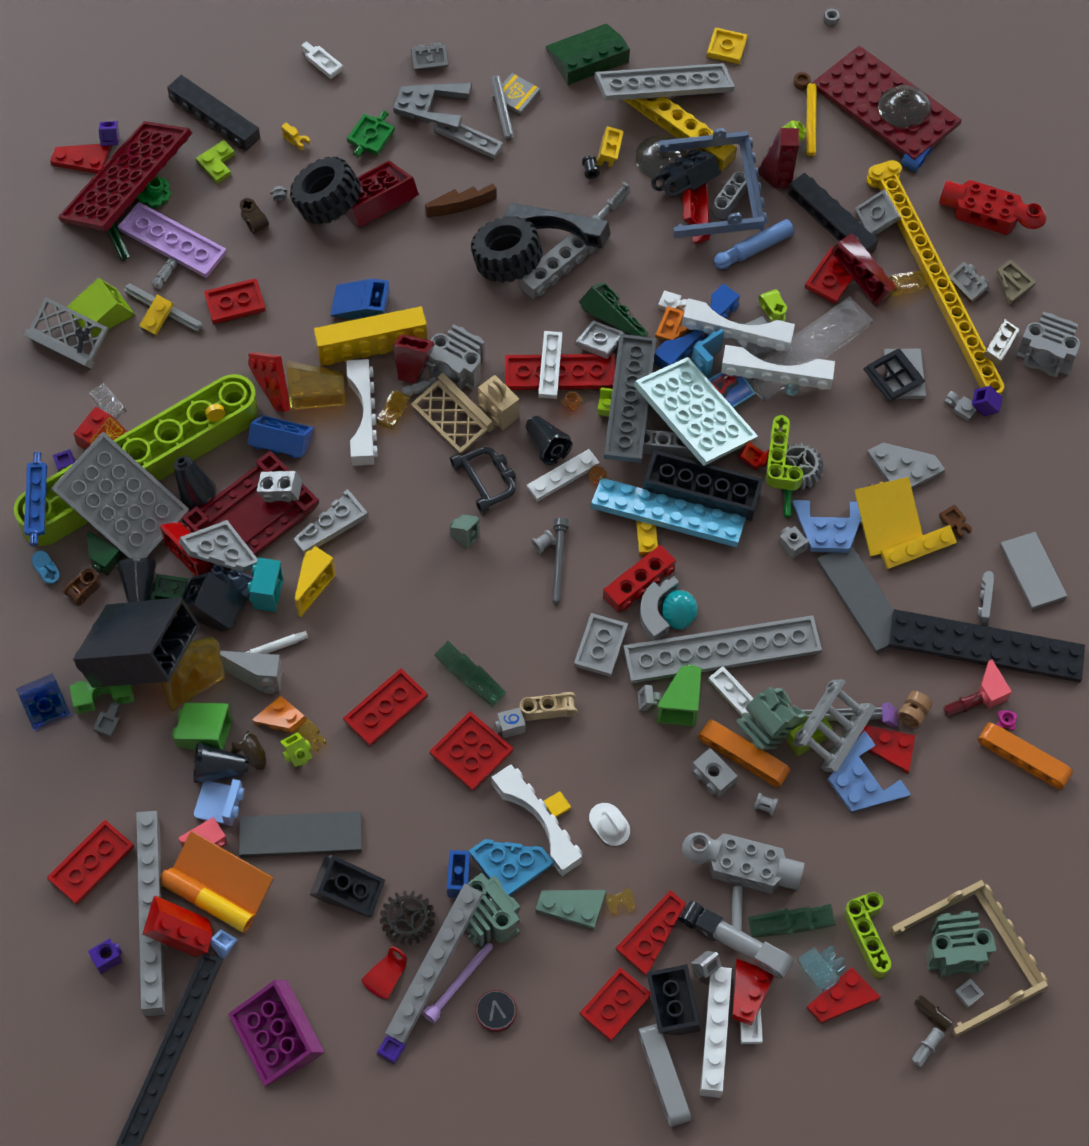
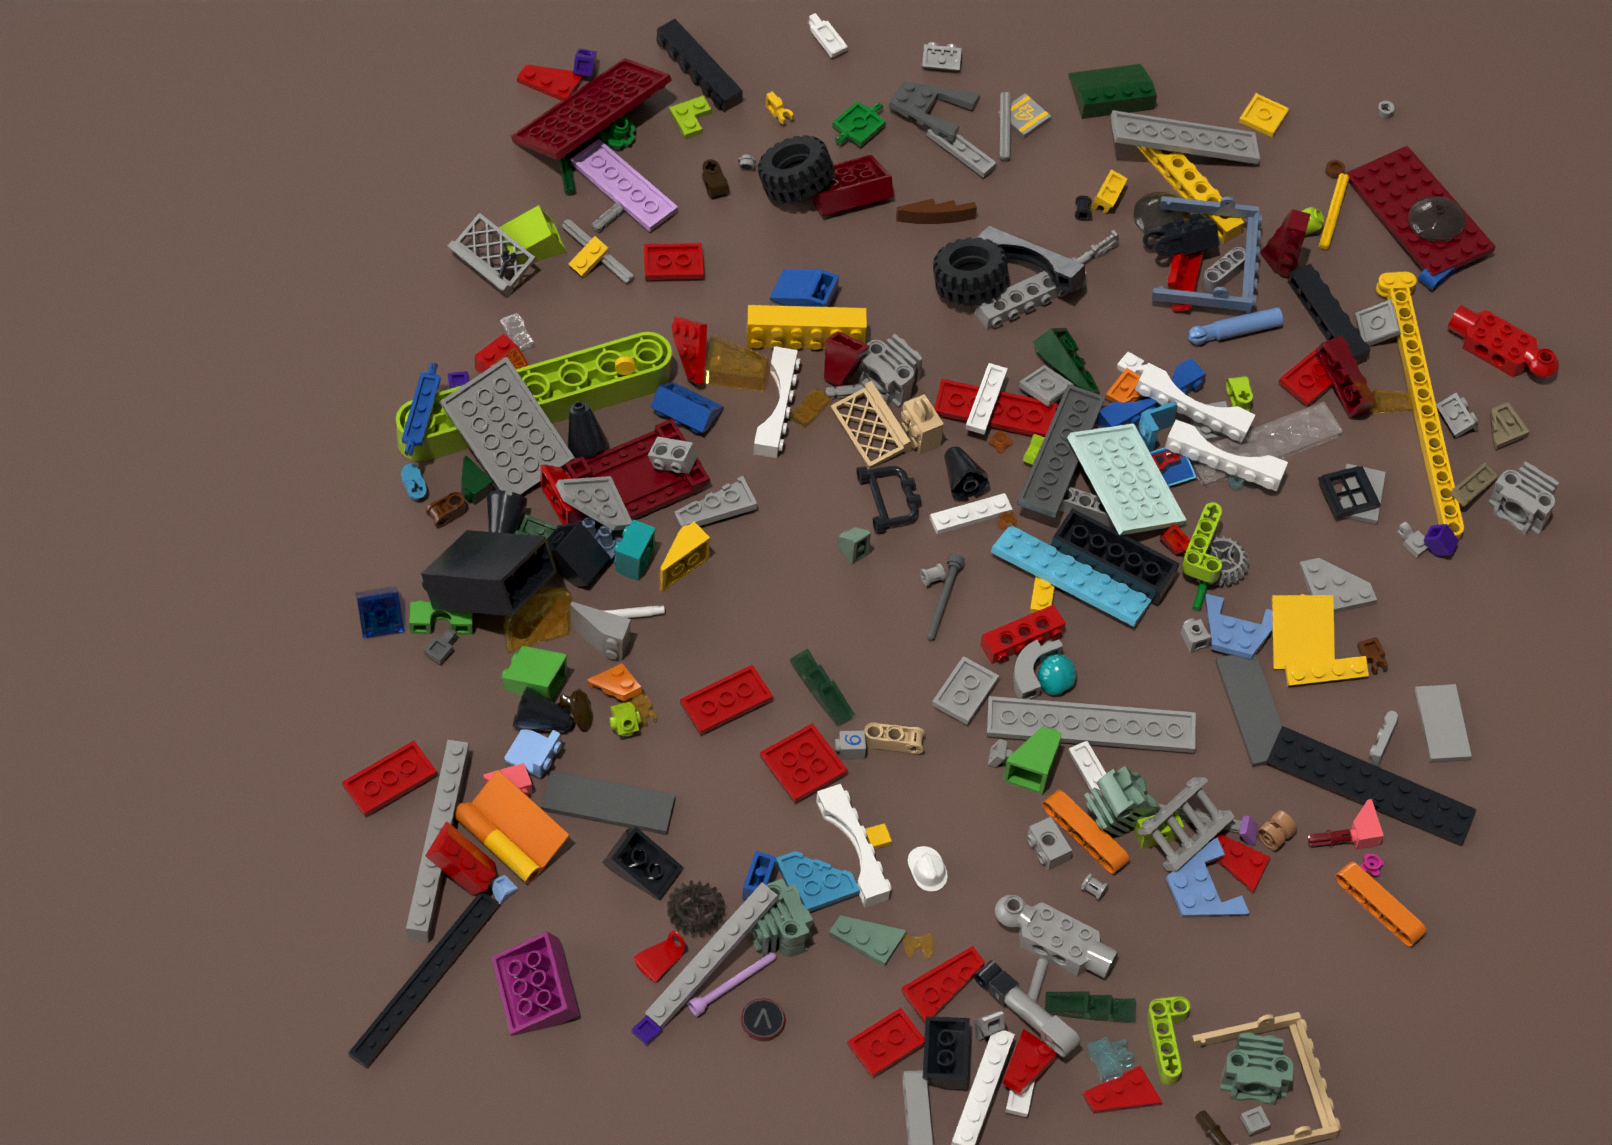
camera: 10 degrees right, 5 degrees down
(105, 964) = (381, 879): dark purple brick -> none

